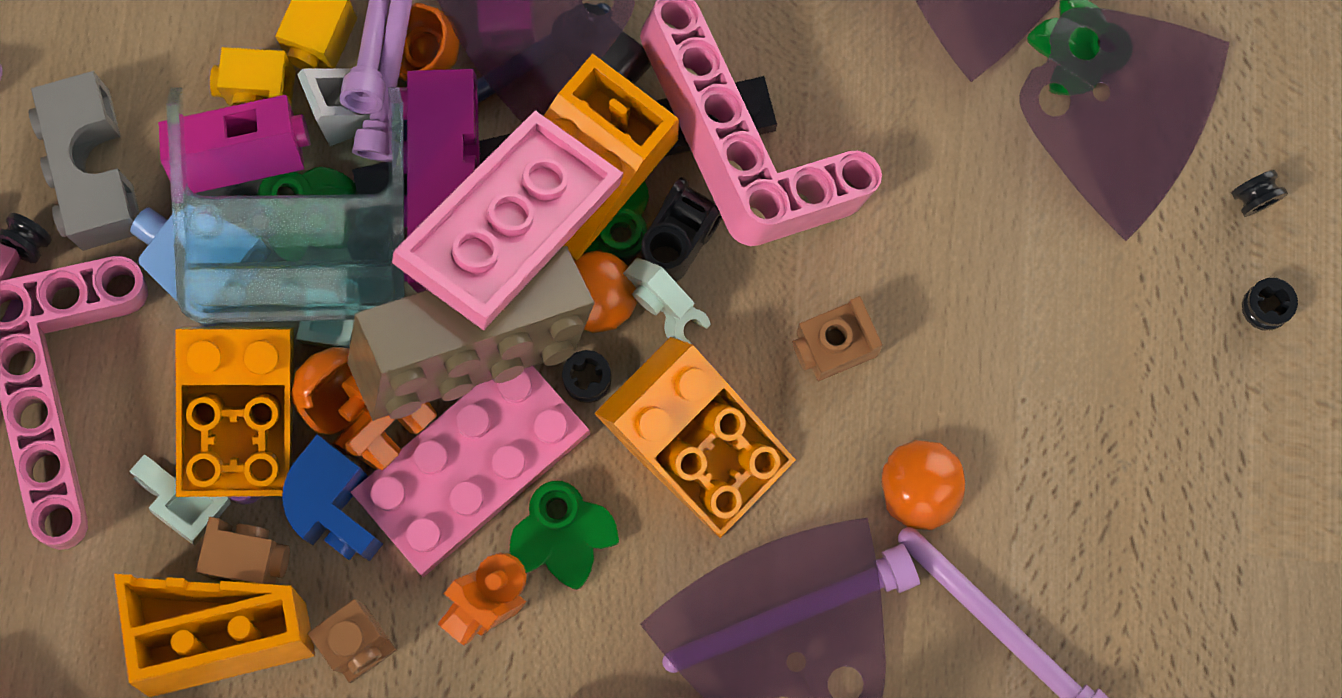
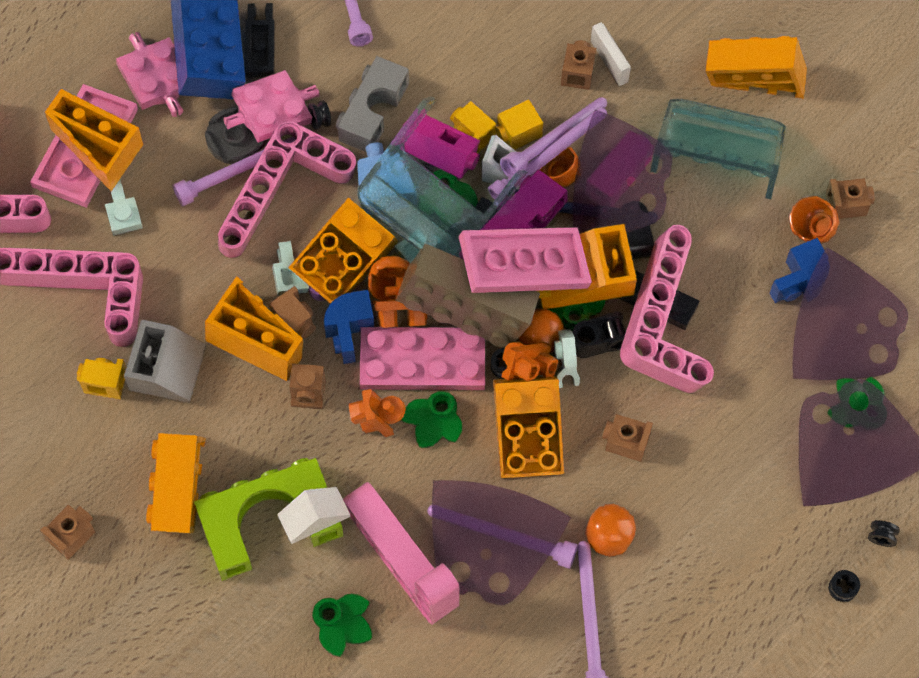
camera: 40 degrees right, 10 degrees down
(624, 352) = (528, 361): none -> orange hips

